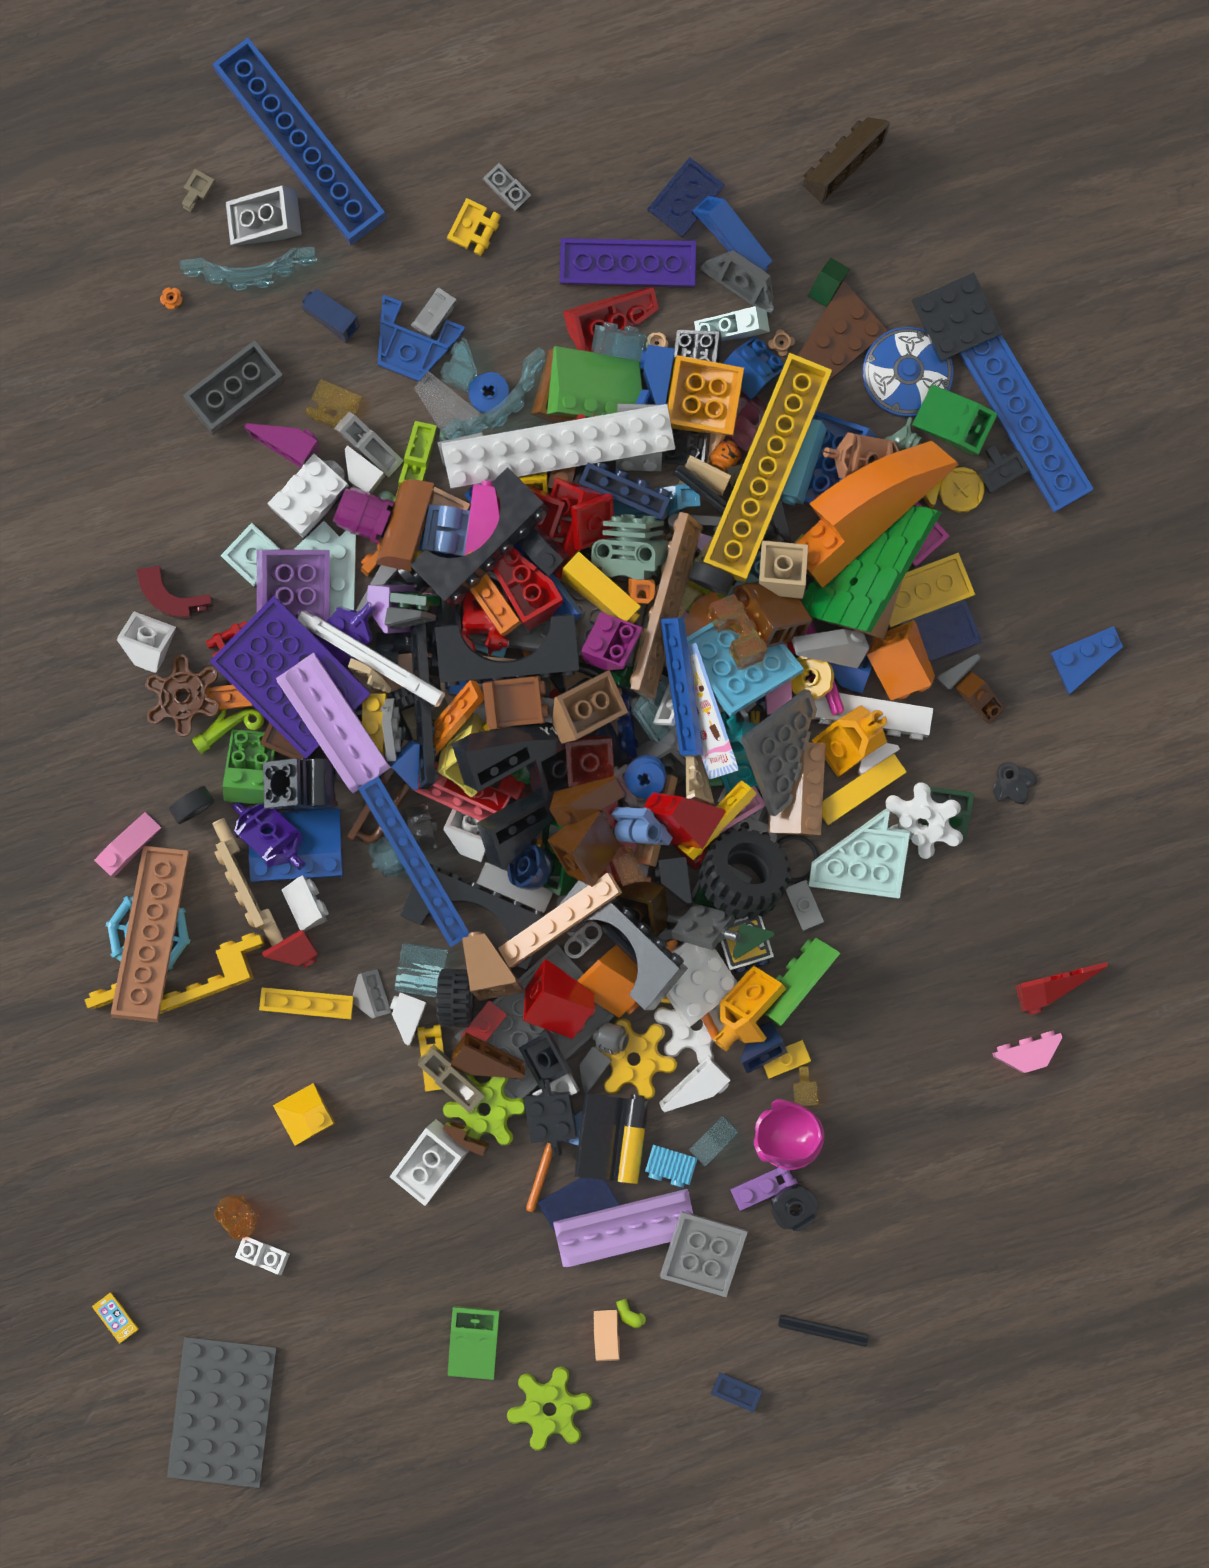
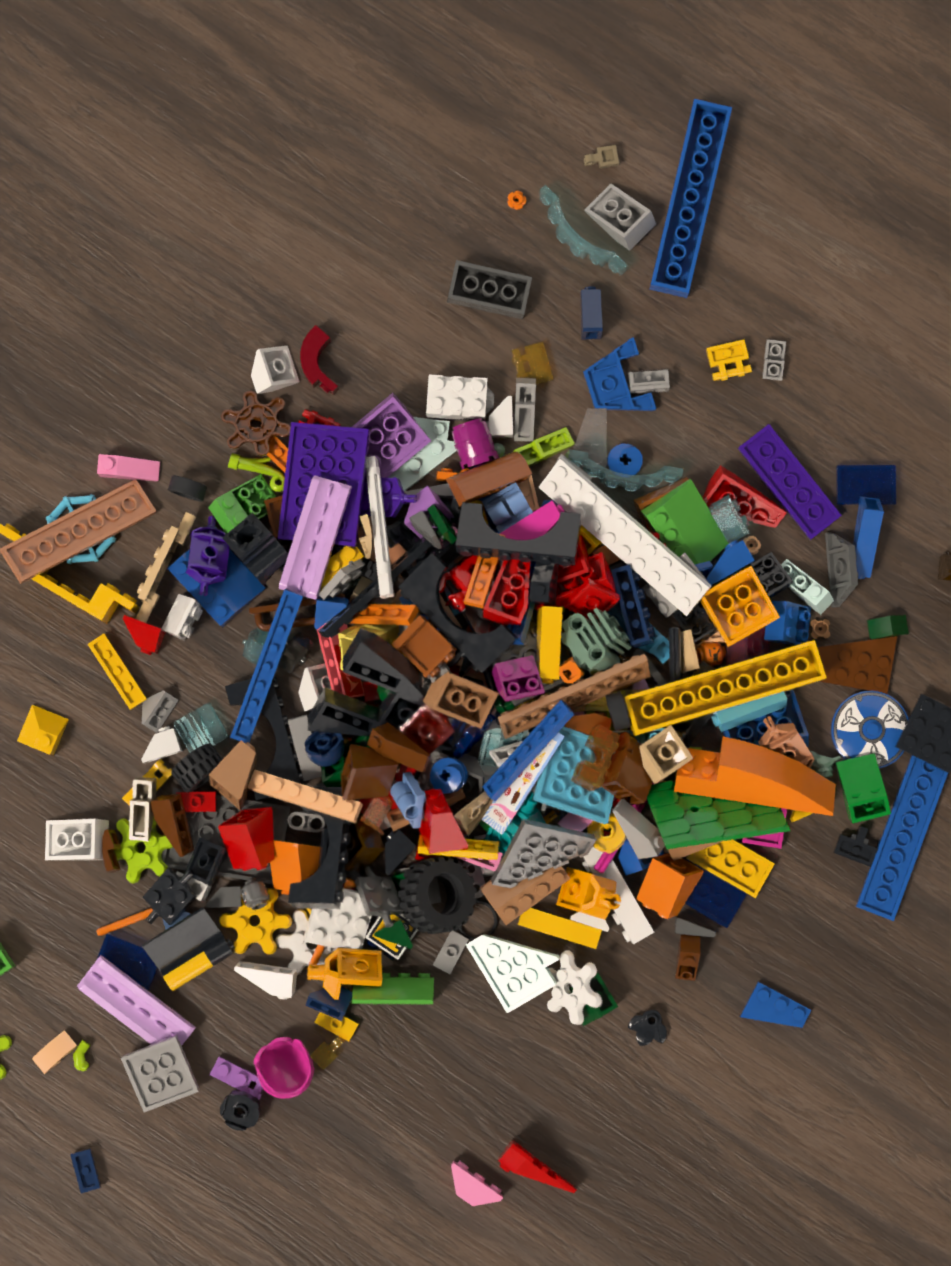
camera: 50 degrees right, 0 degrees up
(243, 554) = (385, 384): light aqua tile -> none
(288, 442) = (482, 356): magenta slope -> none
(461, 368) = (626, 429): clear light blue slope -> none
(670, 1165) = (203, 1003): medium azure brick -> none
(713, 1141) = (242, 1019): clear light blue slope -> none
(823, 1330) = (173, 1196): black axle -> none
(961, 490) = (819, 831): yellow tile -> none

